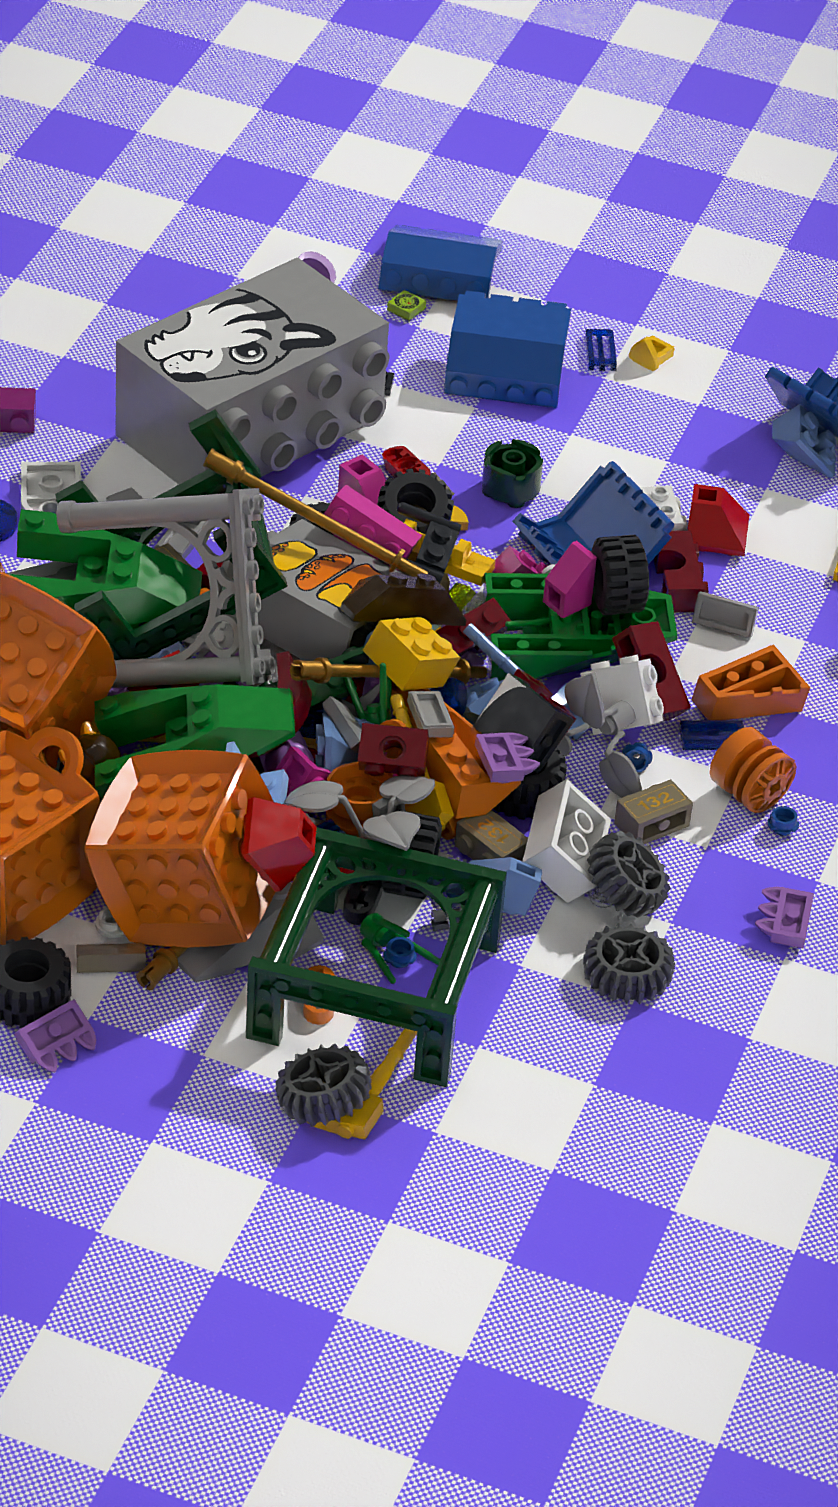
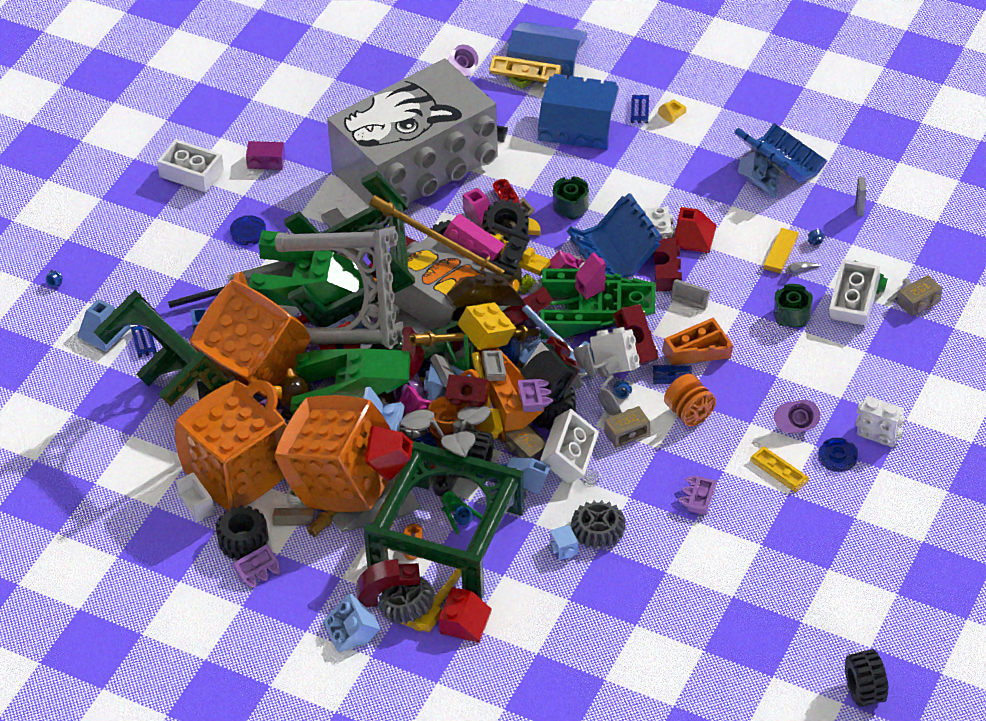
camera: 10 degrees right, 5 degrees up
(43, 480) = (284, 205): white tile -> none
(230, 1127) = (351, 624): none -> light blue slope
(280, 1046) = (382, 576): none -> dark red arch
(410, 289) = (523, 68): none -> yellow hinge
(423, 1110) = (464, 615): none -> red slope
(575, 992) = (563, 542): none -> light blue brick
(620, 575) = (620, 273): black tyre -> none
(628, 874) = (601, 470): dark grey gear -> none
(783, 820) = (706, 432): blue plate -> none

